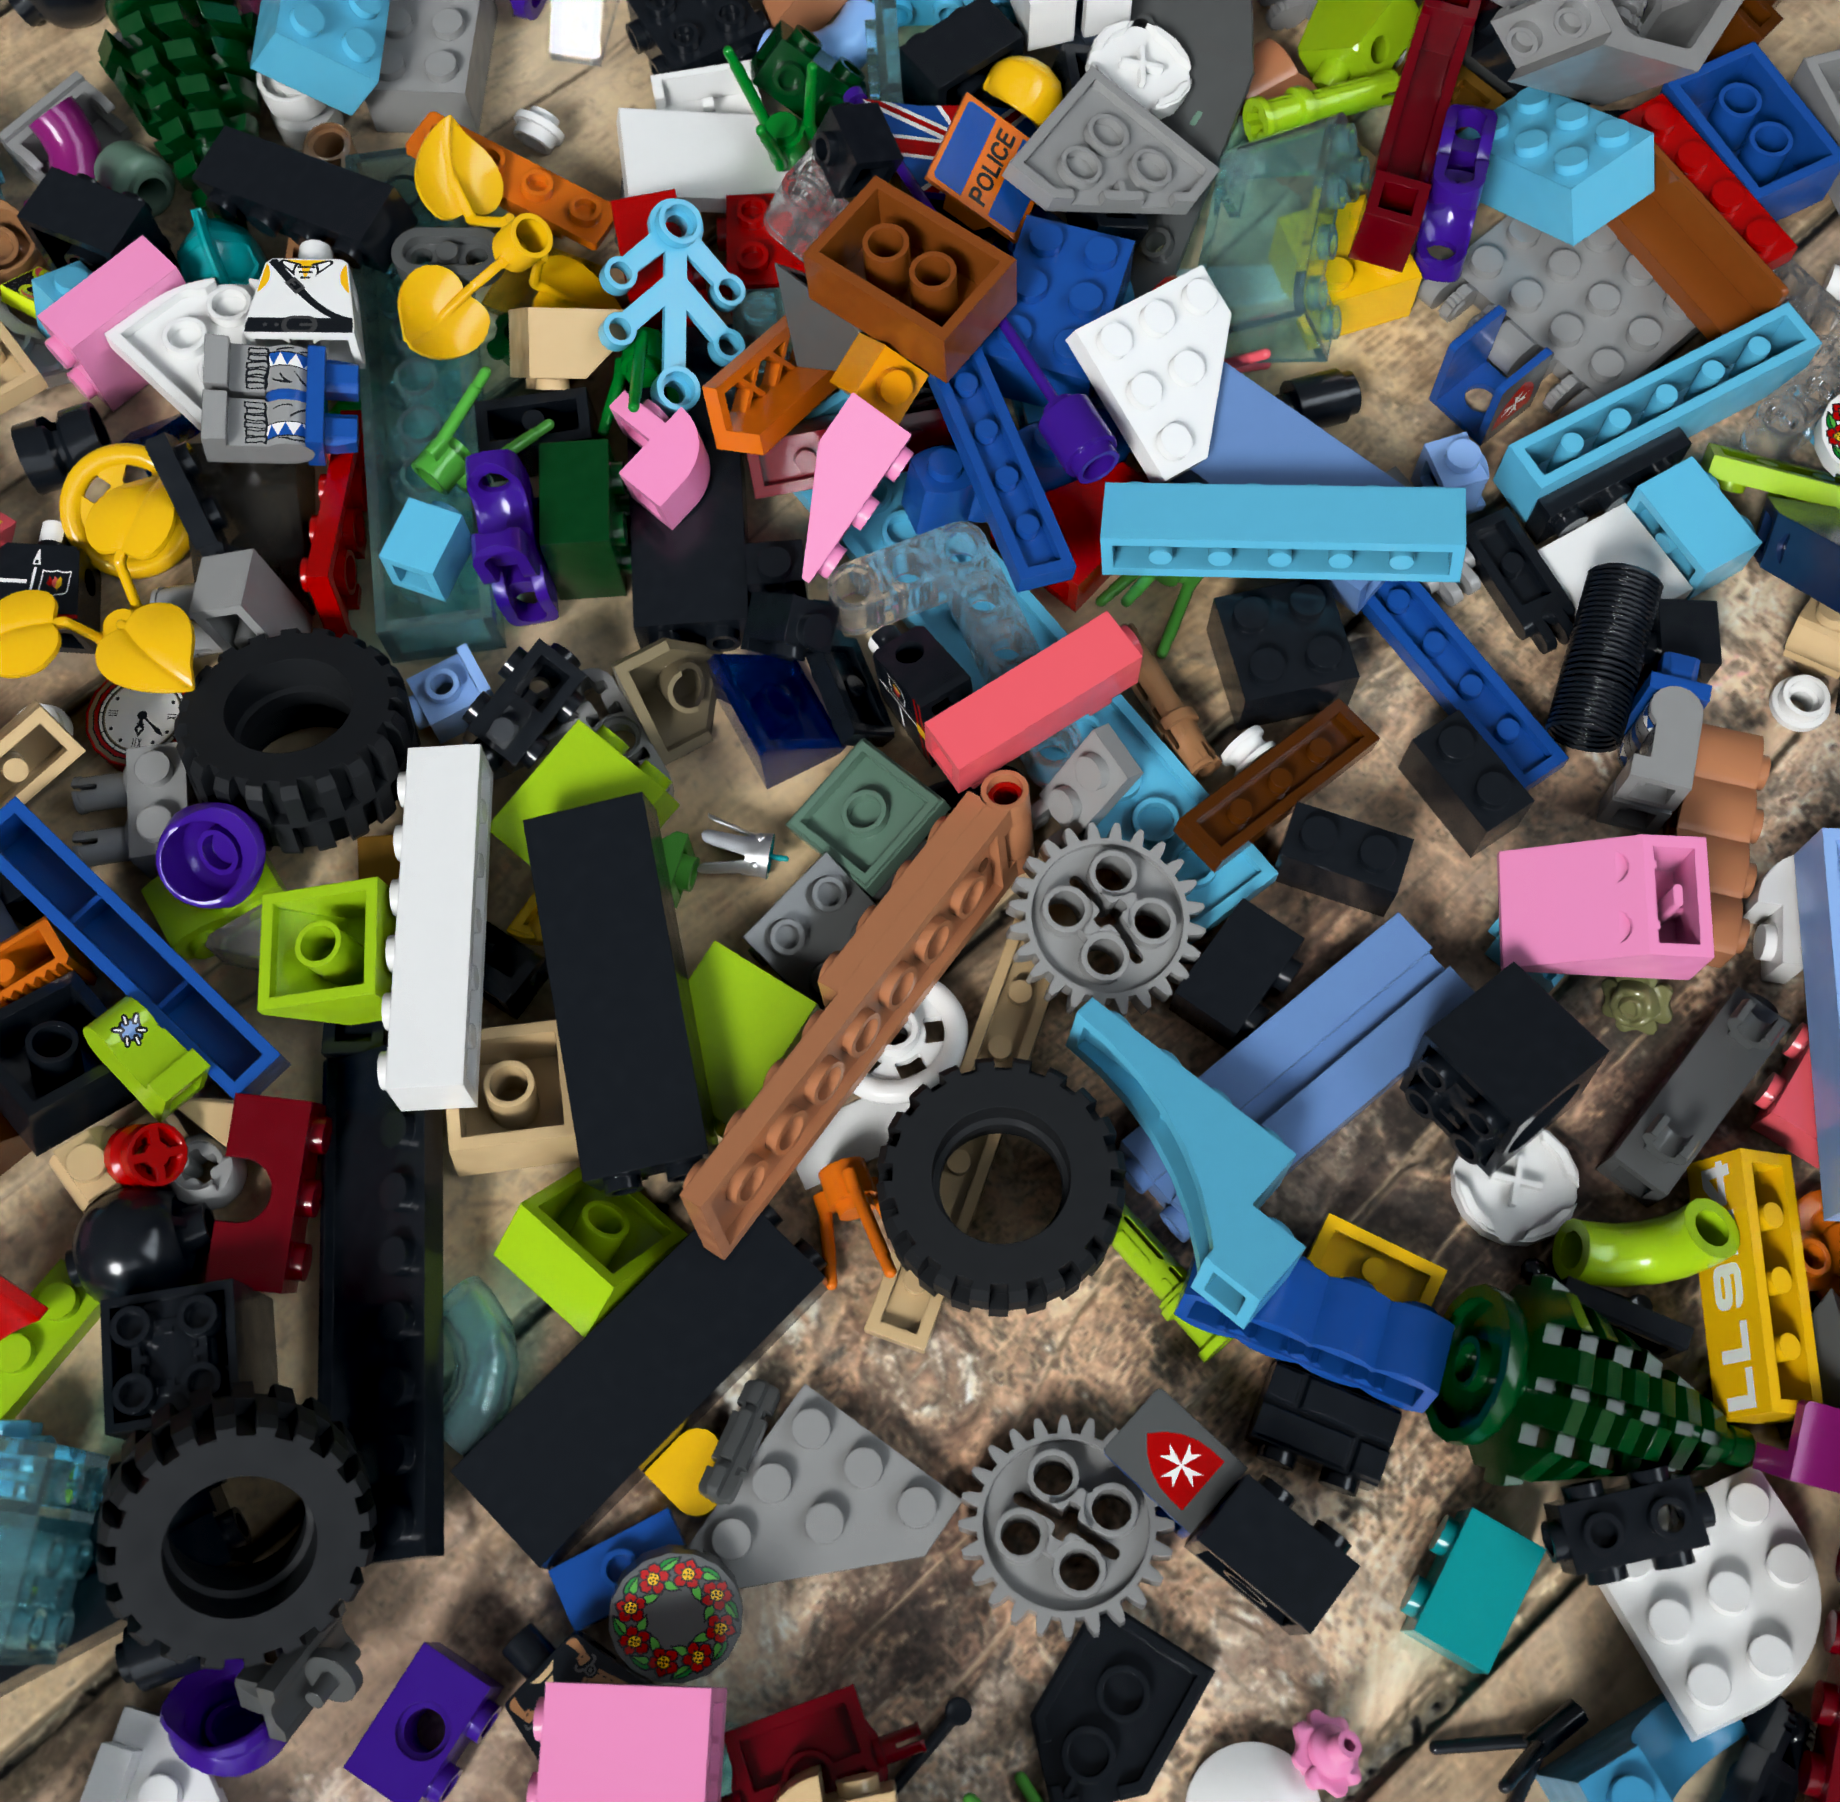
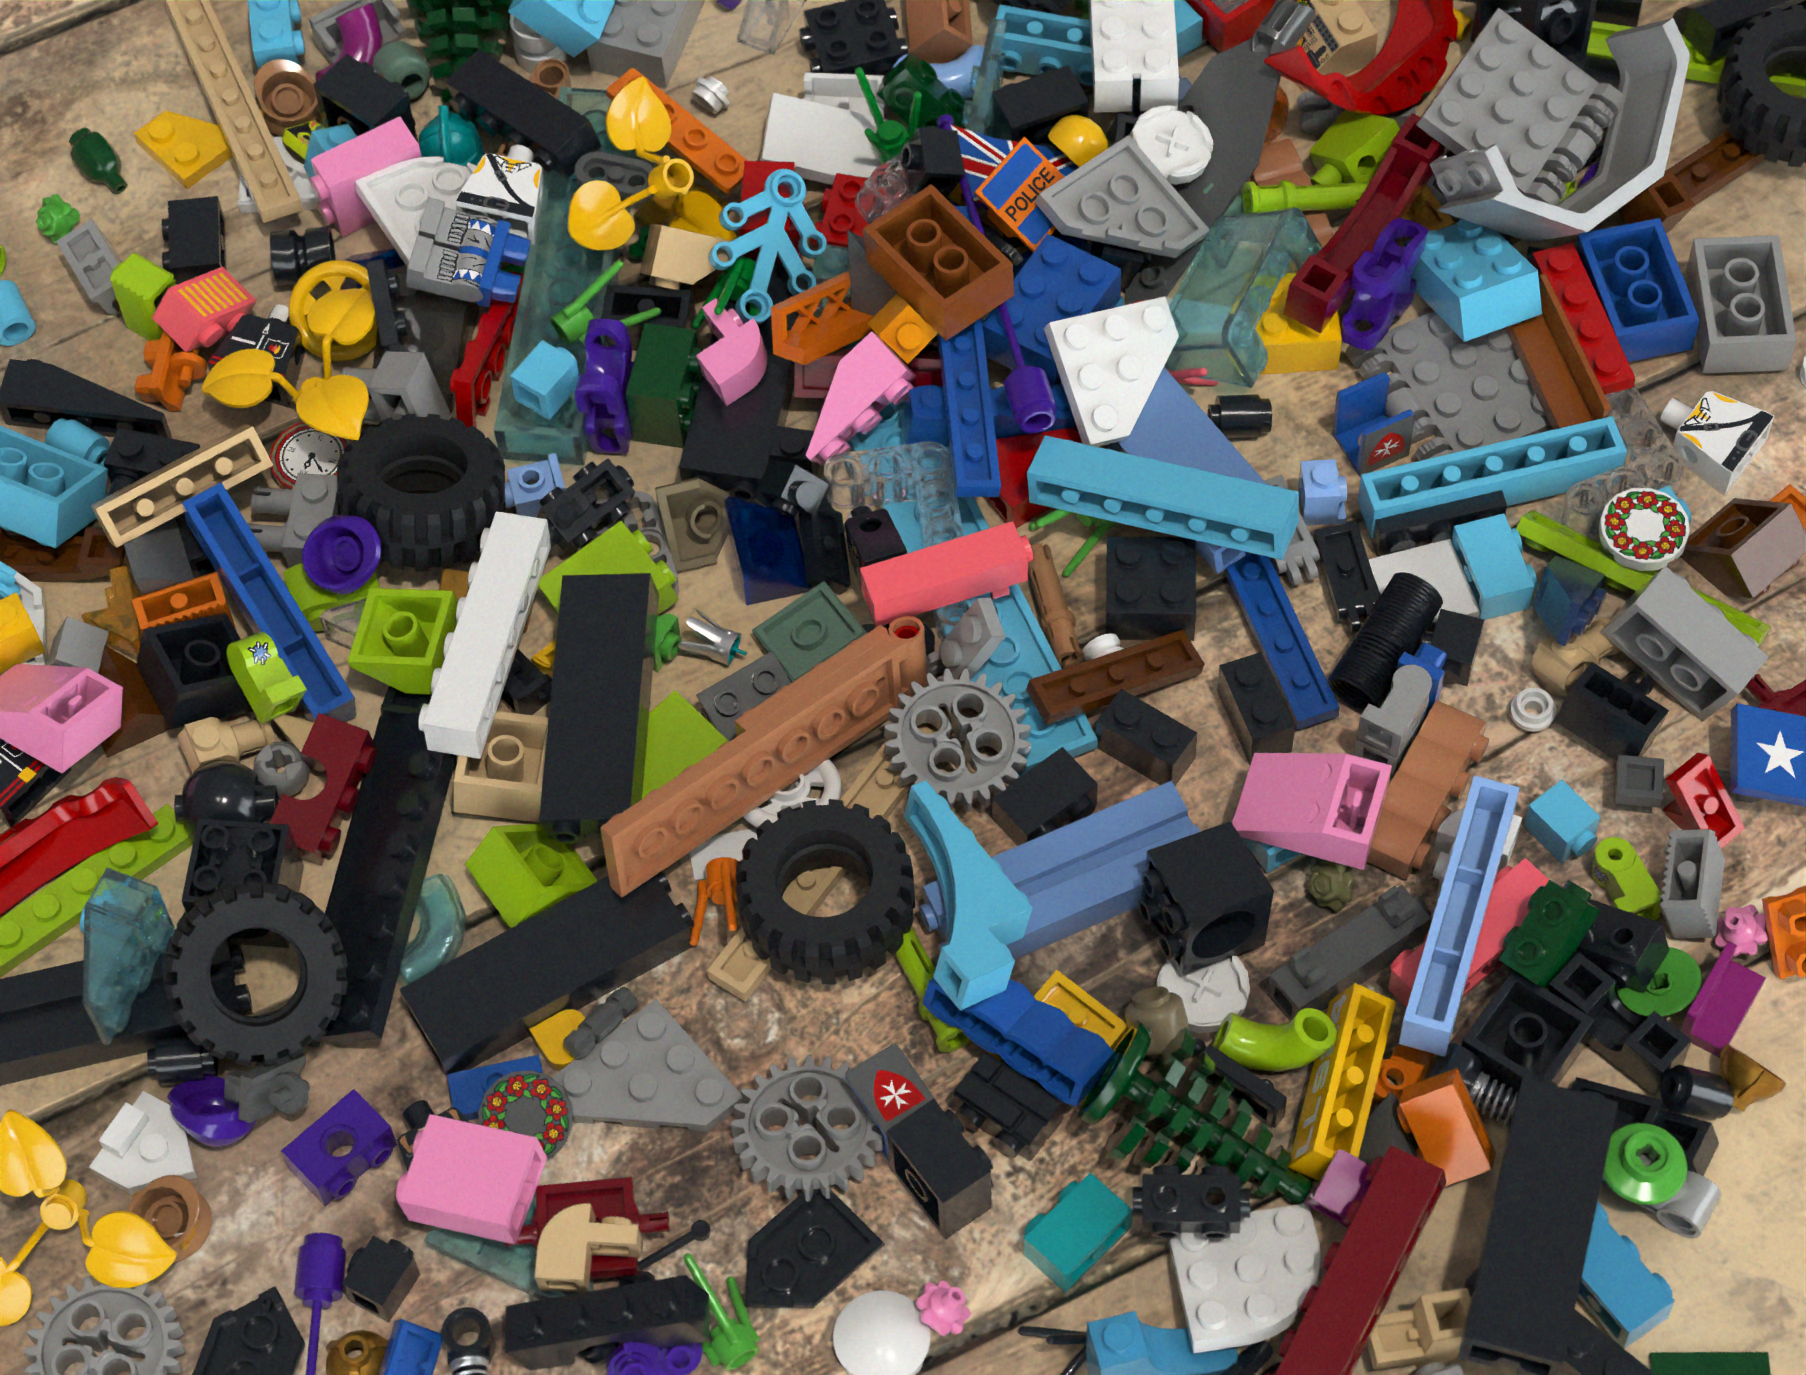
camera: 15 degrees right, 10 degrees down
(162, 1154) = (254, 733): red wheel -> none
(1484, 1250) = (1159, 1011): none -> dark tan head

